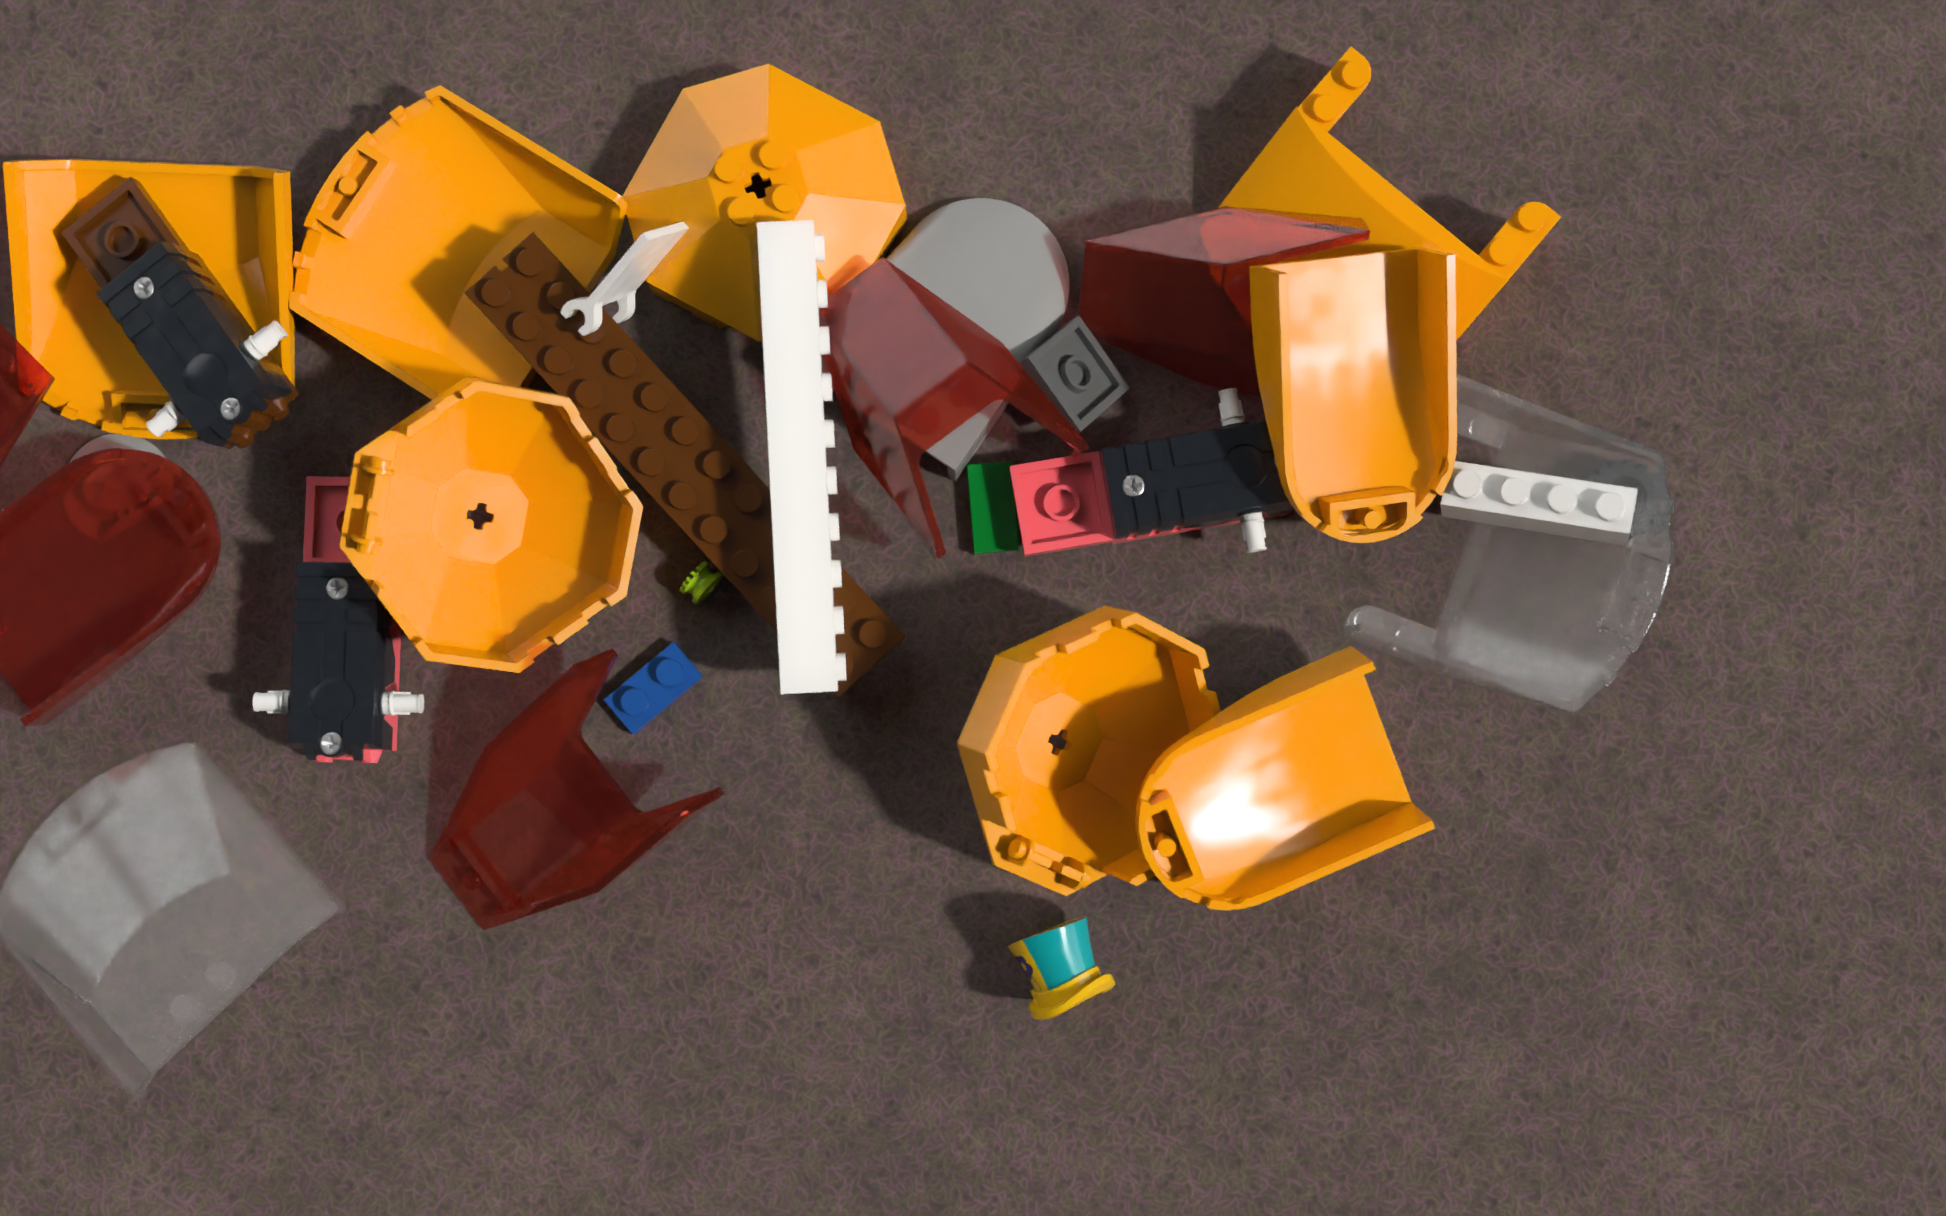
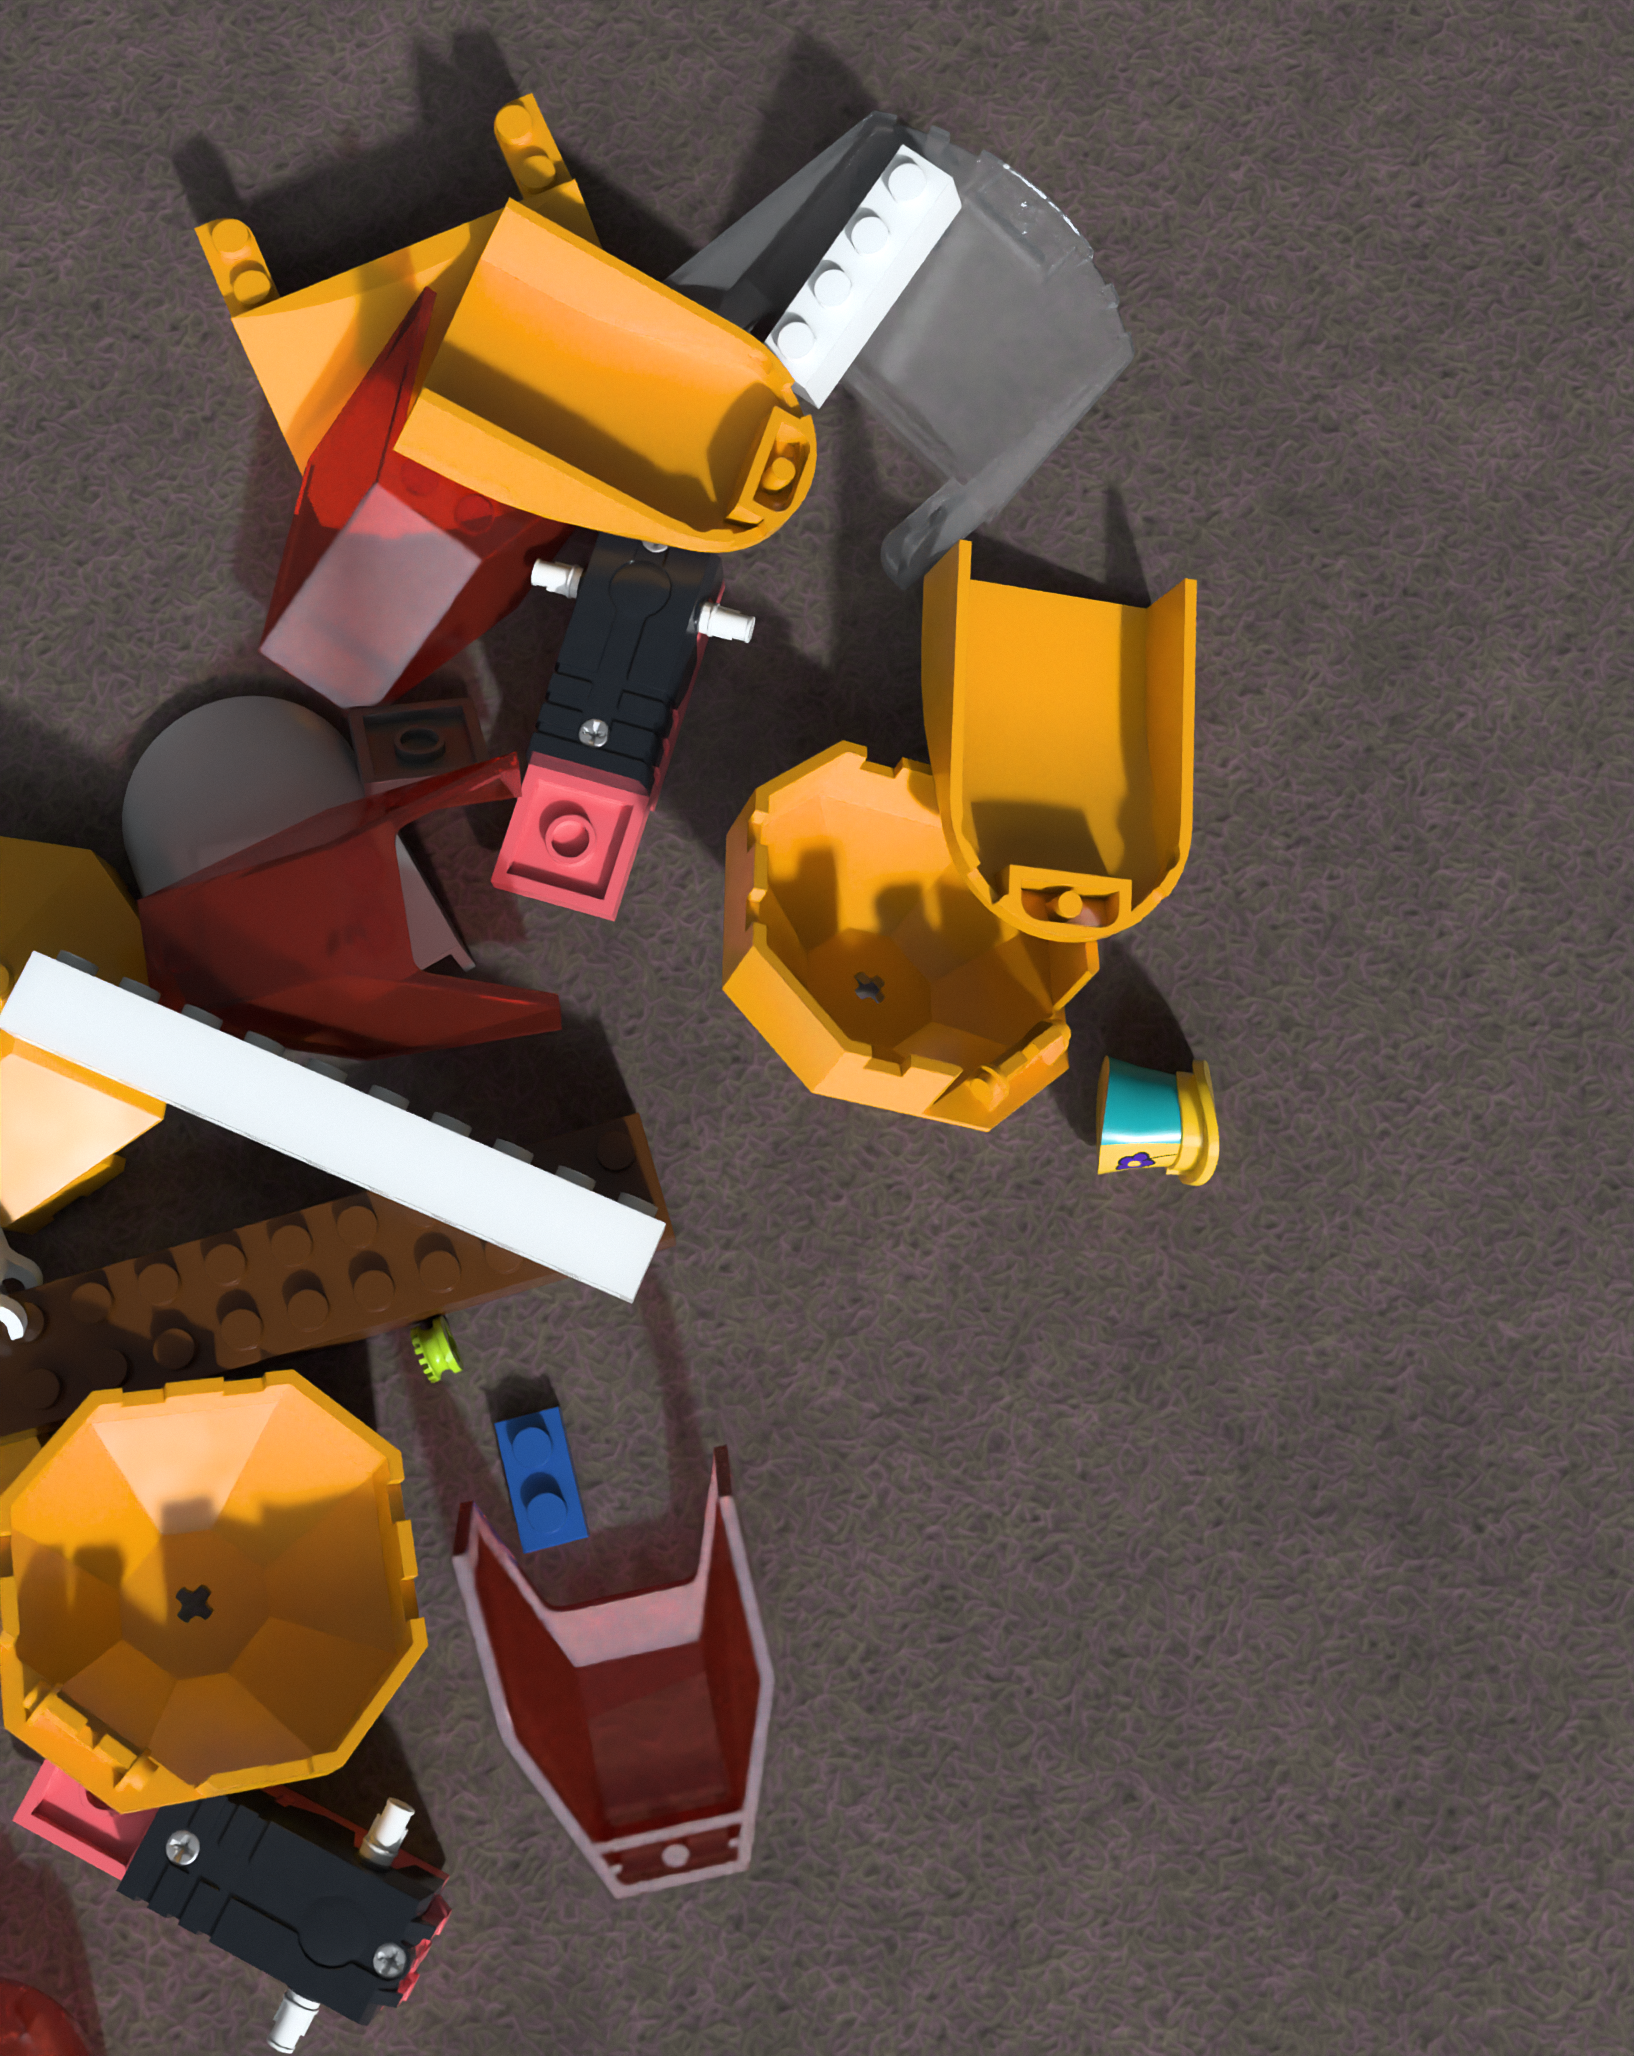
camera: 60 degrees left, 5 degrees down
(992, 508) = (533, 934): green tile -> none

